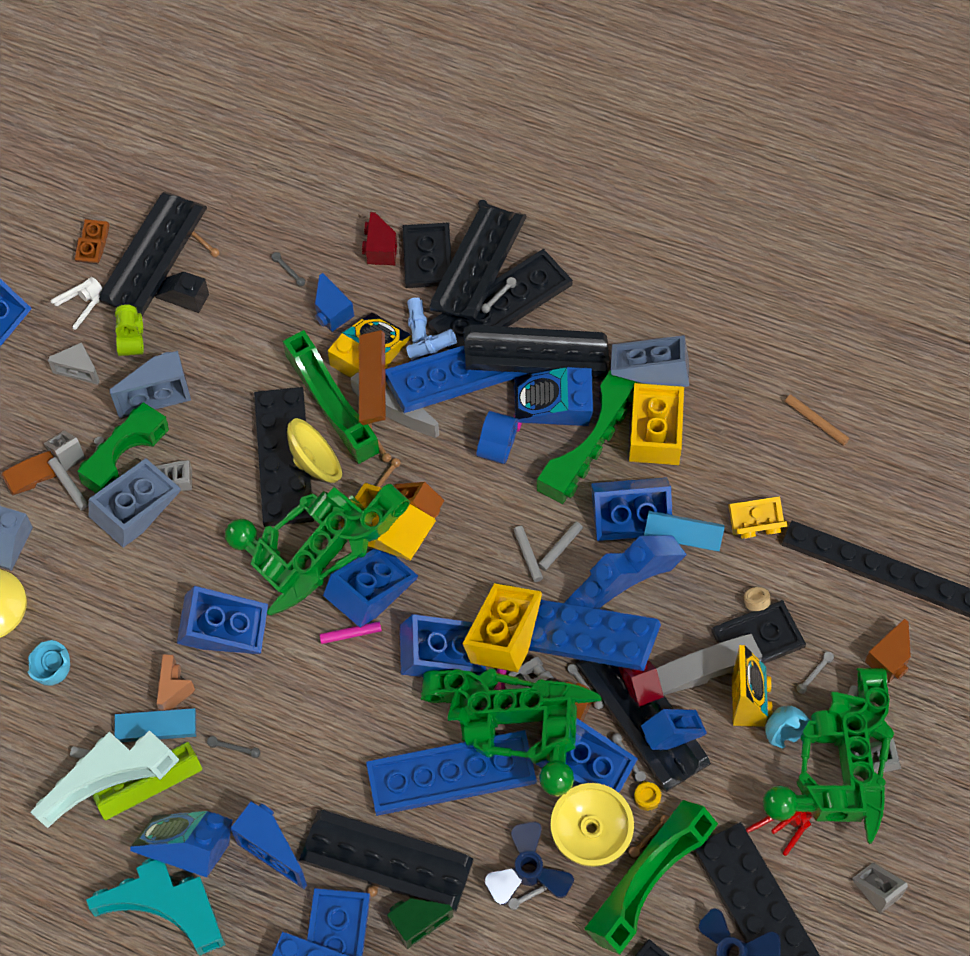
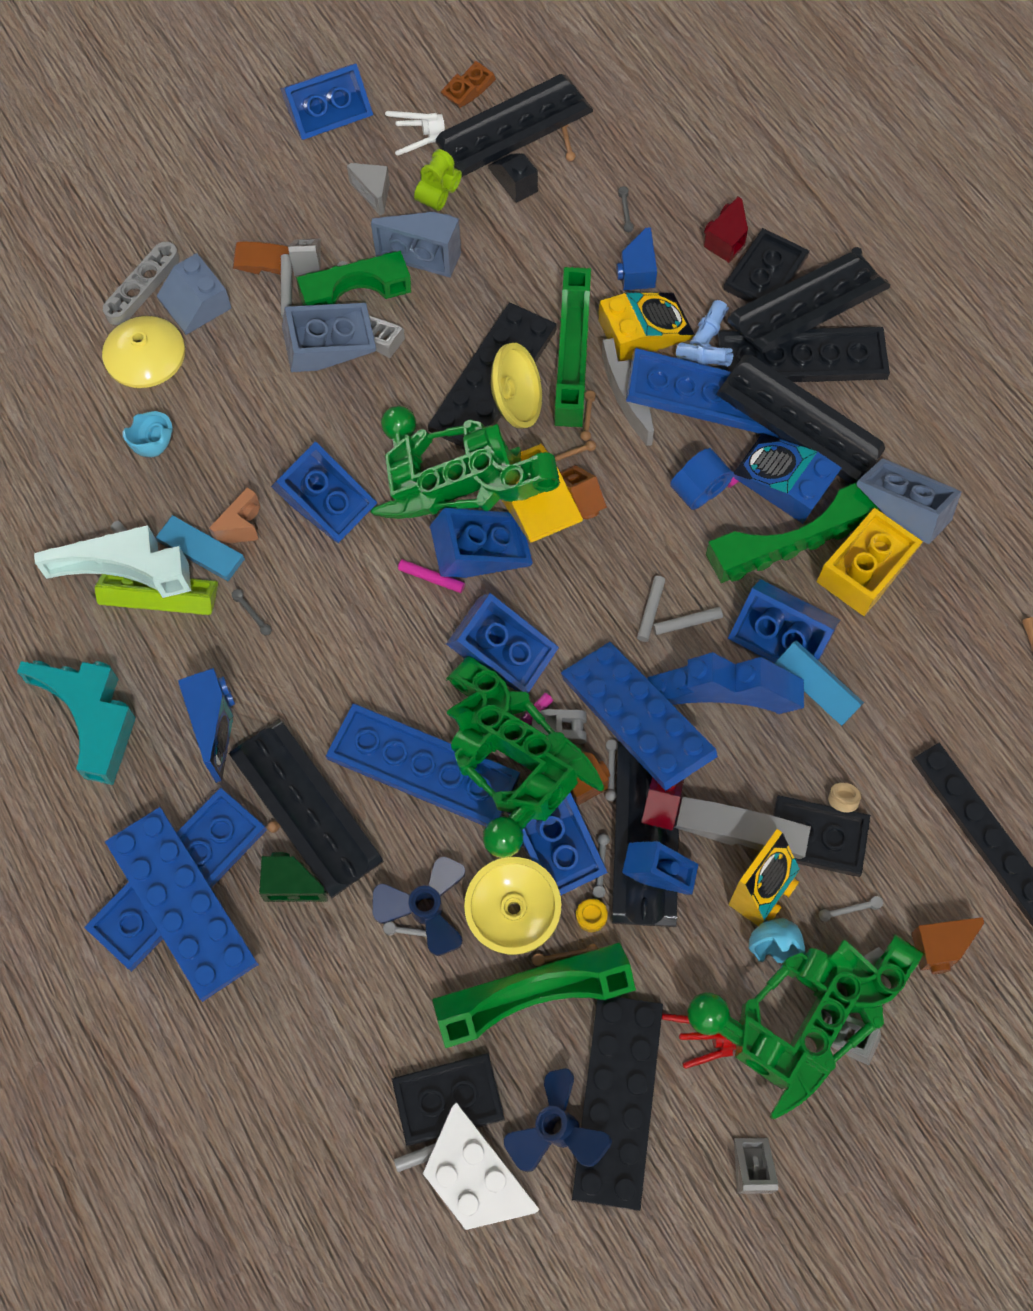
camera: 35 degrees right, 5 degrees up
(185, 840) = (141, 667): blue slope -> none
(372, 377) = (618, 348): dark orange tile -> none
(503, 628) = (568, 661): yellow slope -> none
(511, 282) = (824, 341): light grey hinge -> none
(757, 516) = (906, 716): yellow bracket -> none

